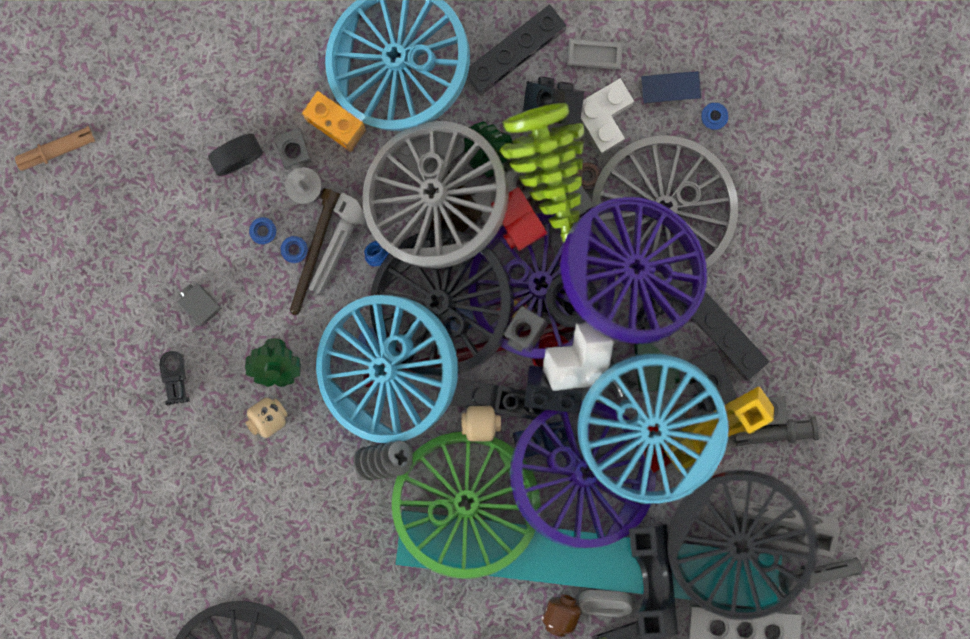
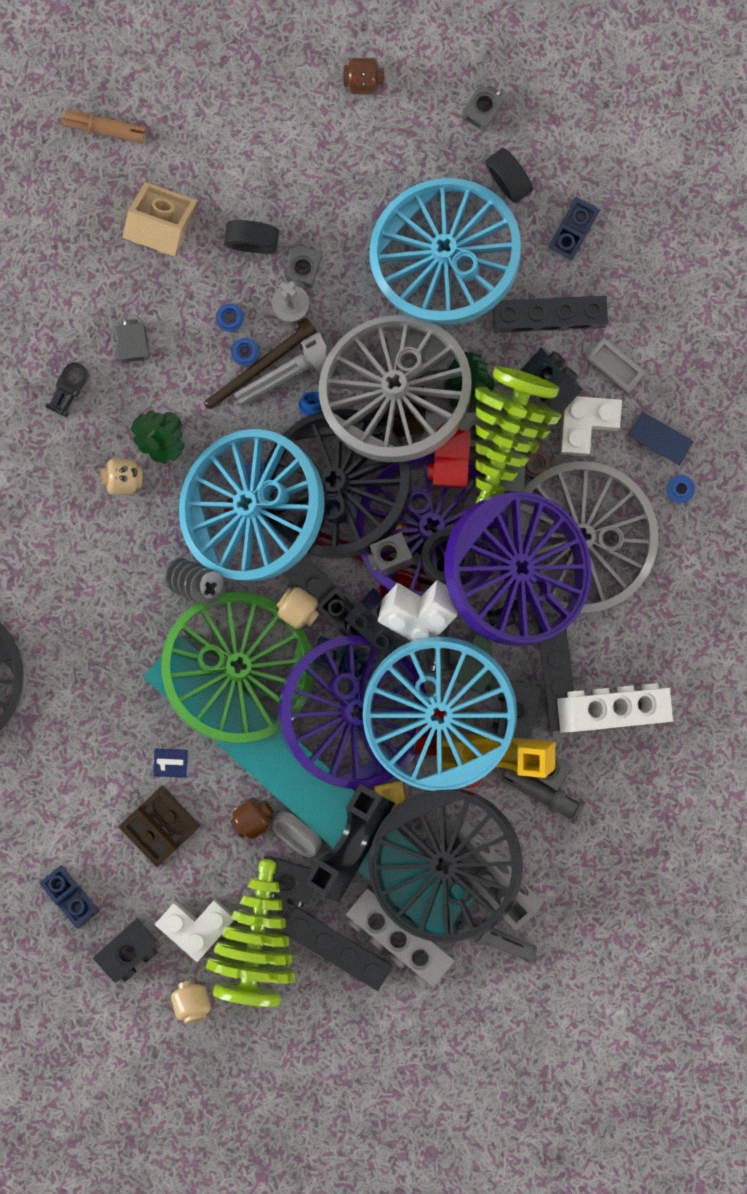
camera: 35 degrees right, 0 degrees up
(151, 191) = (159, 219): none -> tan slope
(334, 121) = (354, 267): light orange window -> none
(465, 617) = (170, 763): none -> clear blue sticker
(657, 515) = (392, 791): none -> yellow tile
(762, 355) = (575, 717): none -> white brick

